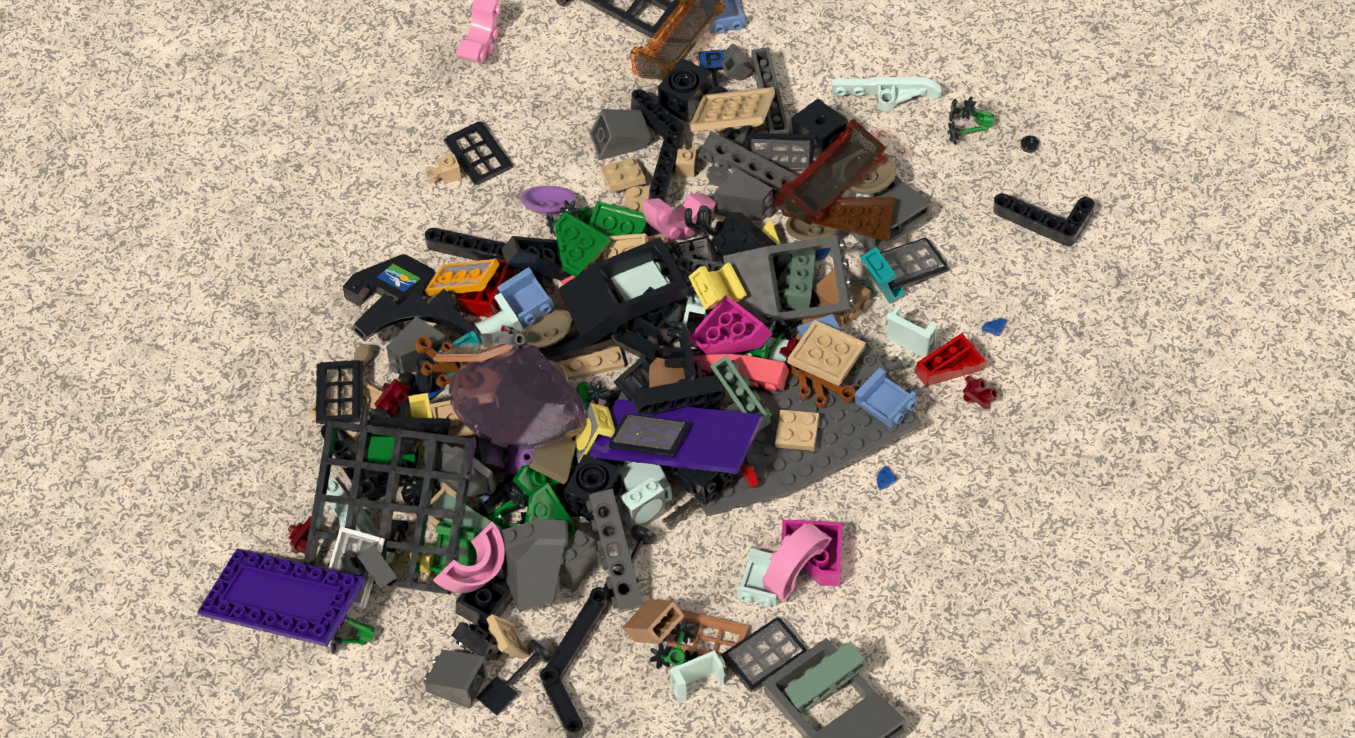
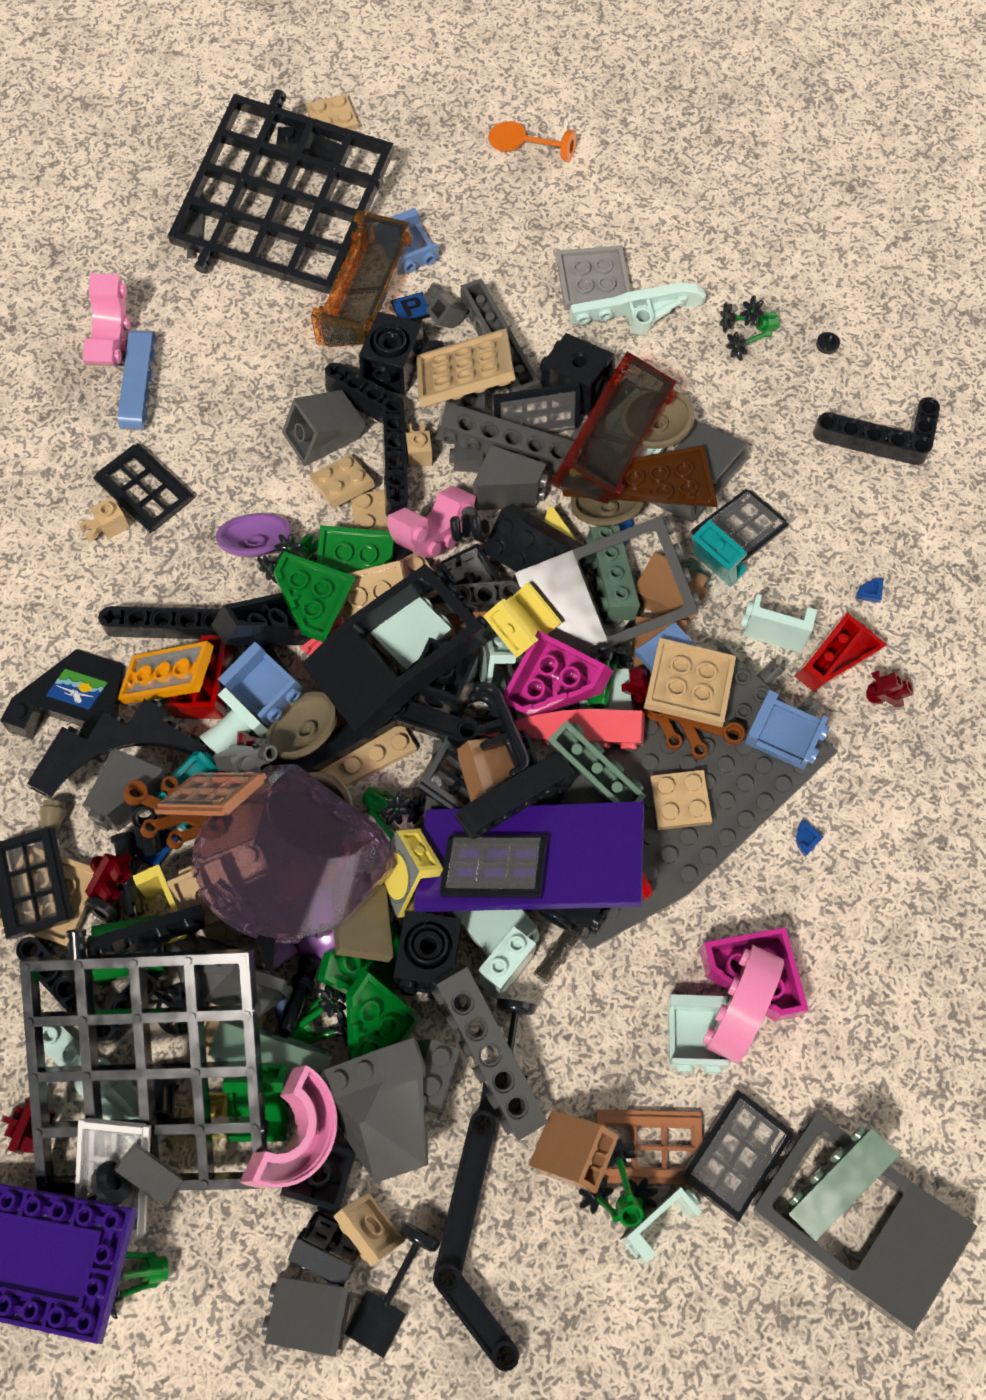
camera: 20 degrees left, 10 degrees up
(491, 75) = (135, 380): none -> medium blue beam
(860, 58) = (591, 274): none -> light grey plate

